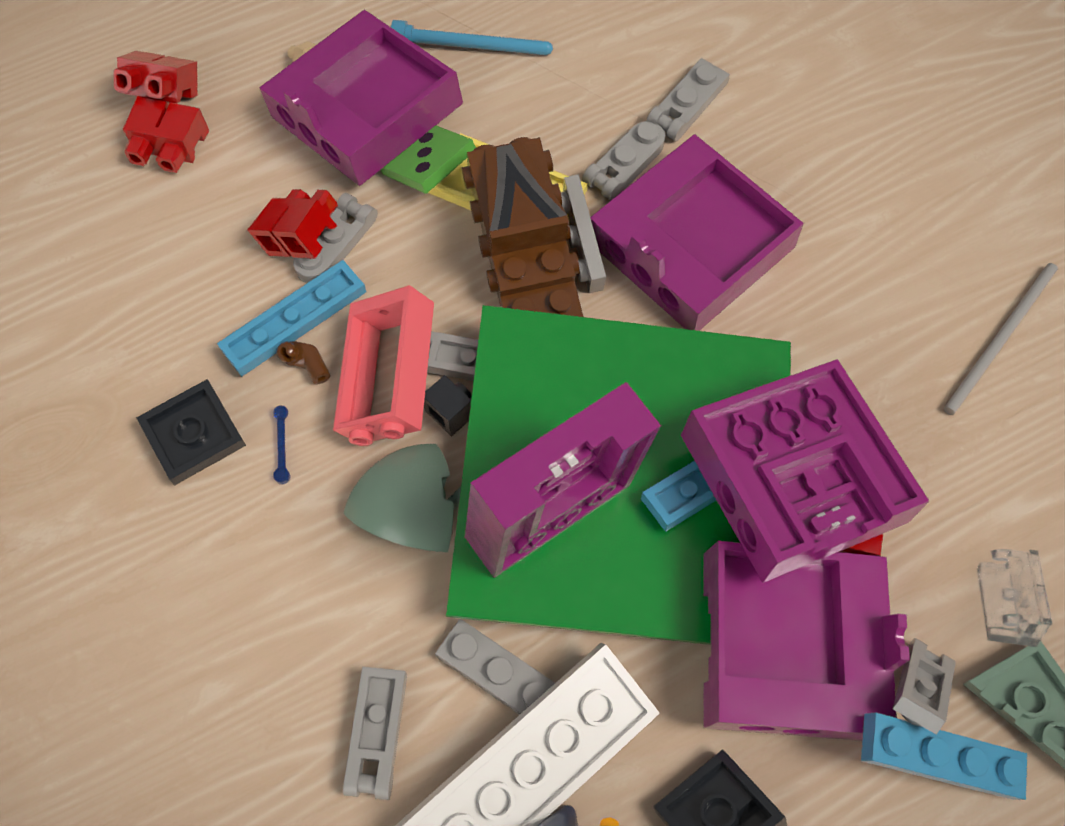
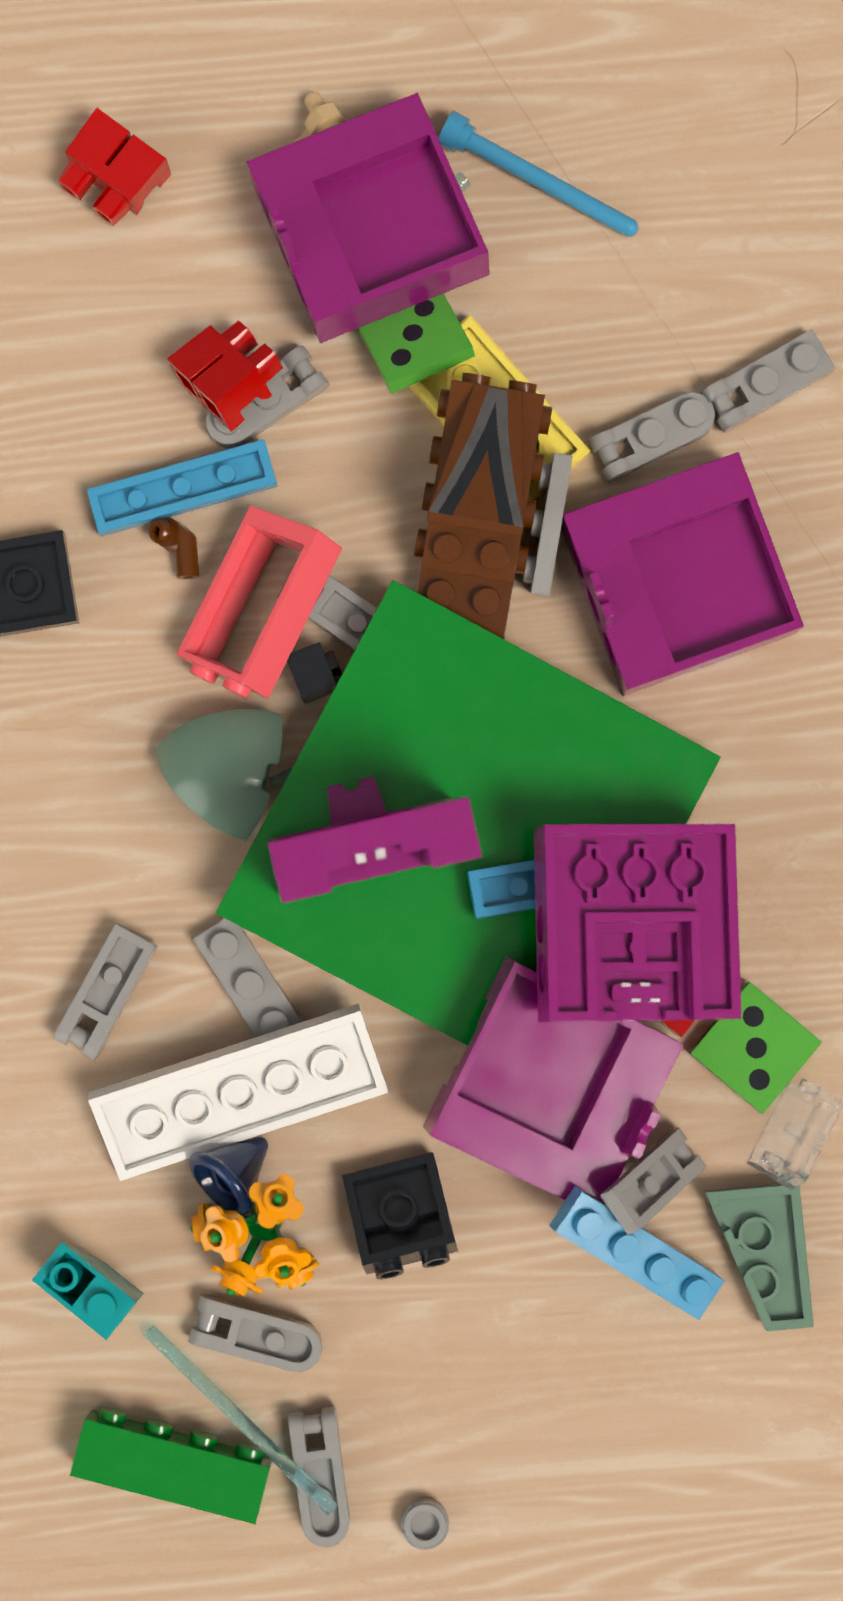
camera: 25 degrees right, 20 degrees up
(156, 76) = (128, 82): red hips -> none
(281, 474) = (106, 672): clear blue hinge -> none
(939, 551) = (756, 1052): none -> bright green tile

